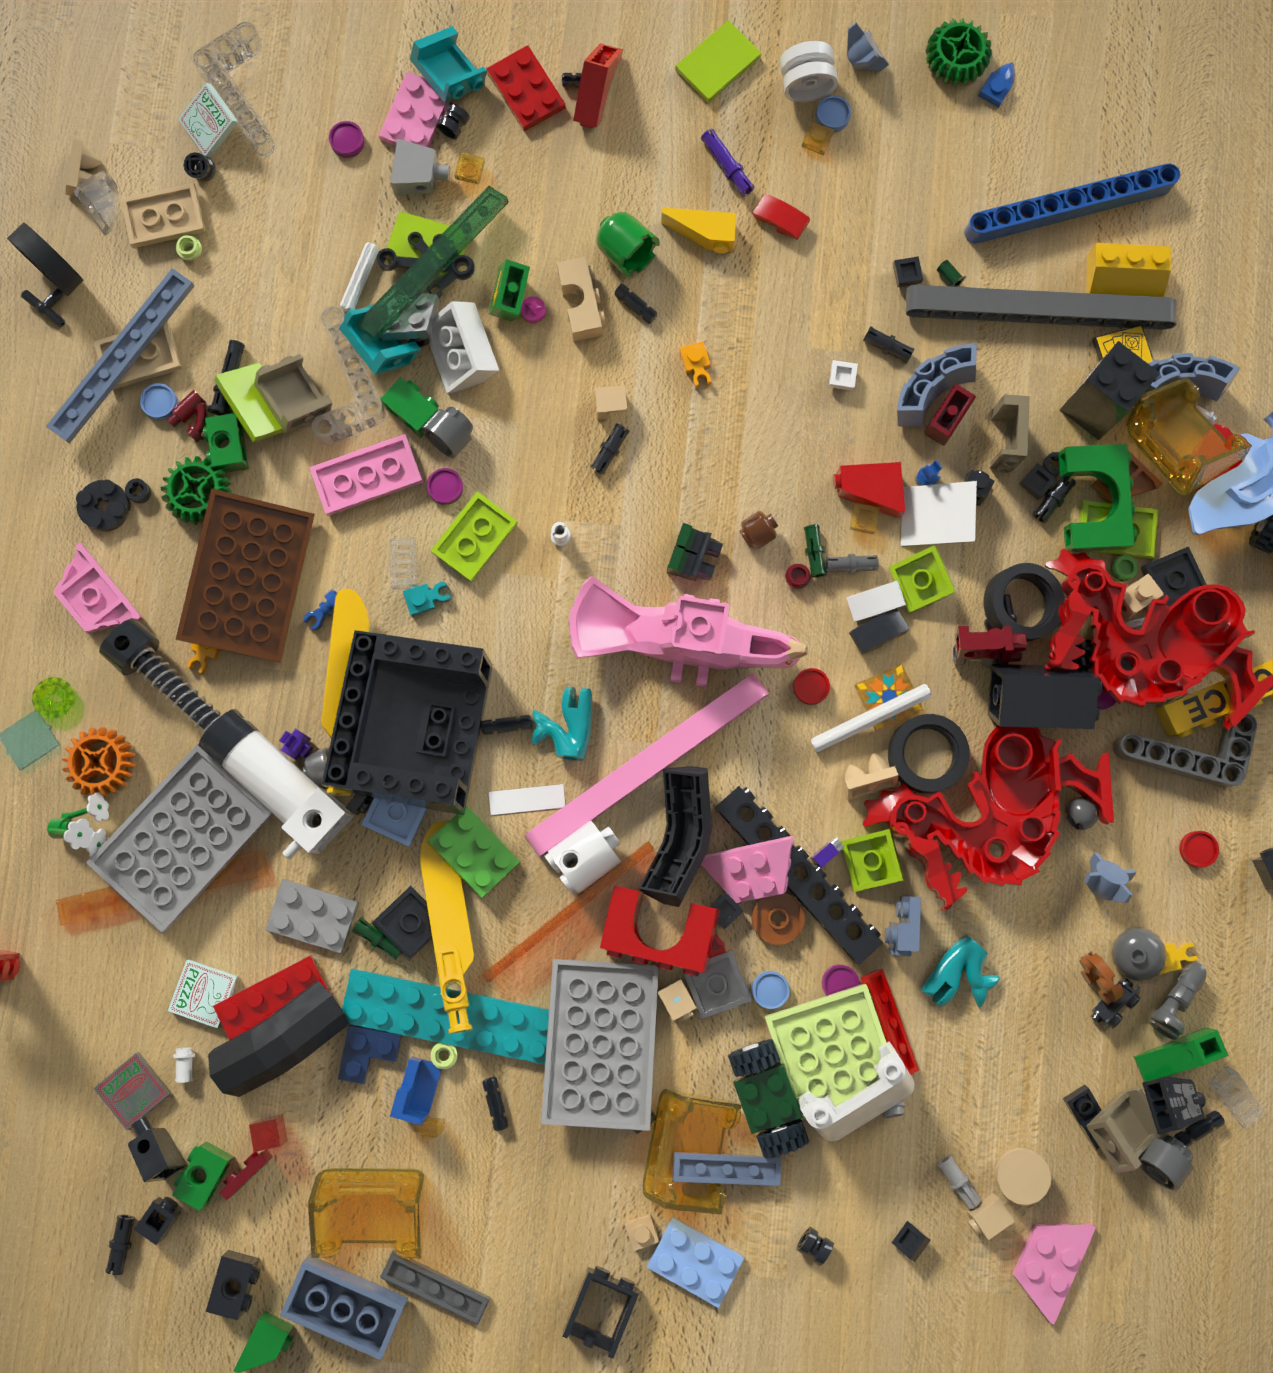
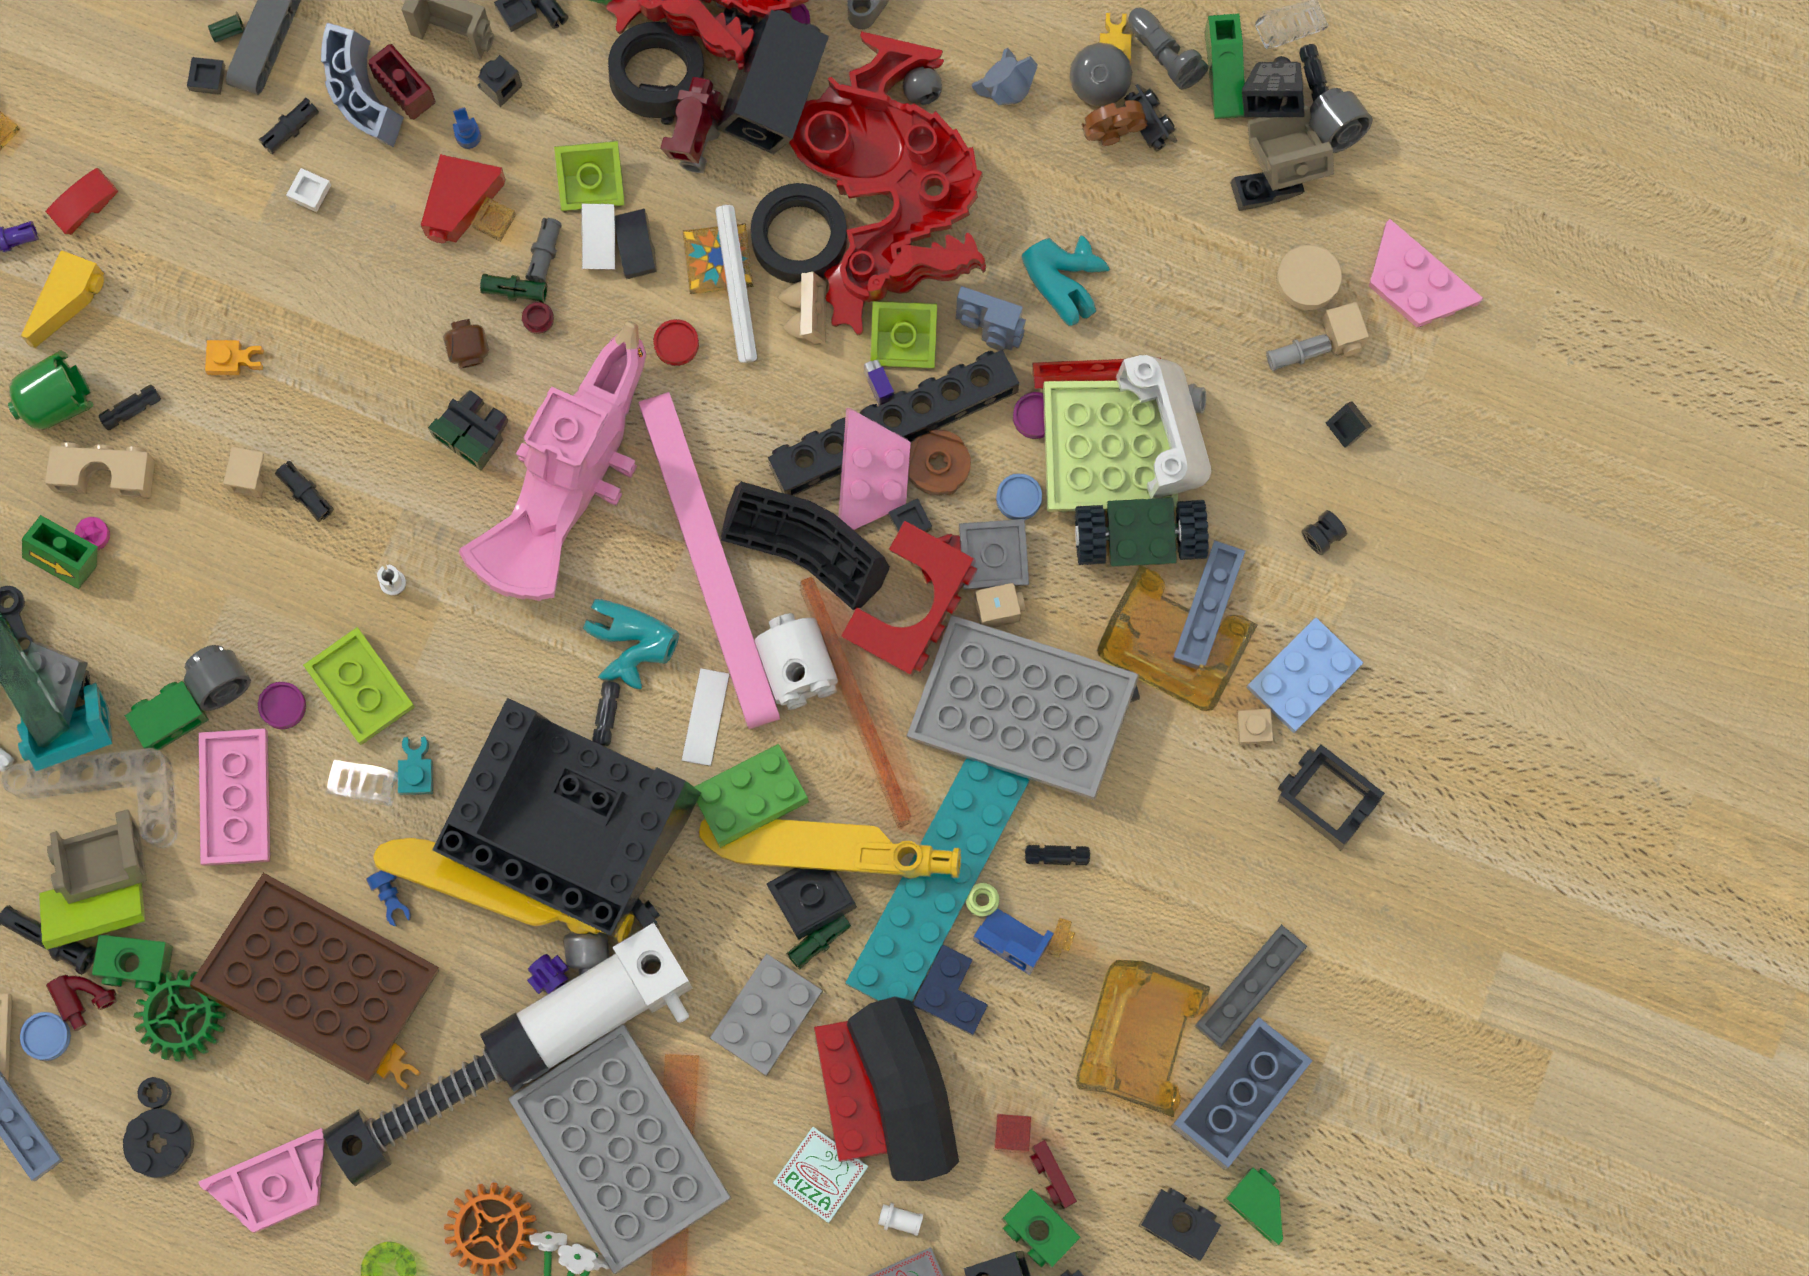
camera: 70 degrees left, 5 degrees down
(394, 820) = (679, 880): light blue plate -> none
(461, 347) = (112, 633): white slope -> none
(939, 514) = (518, 130): white sticker -> none

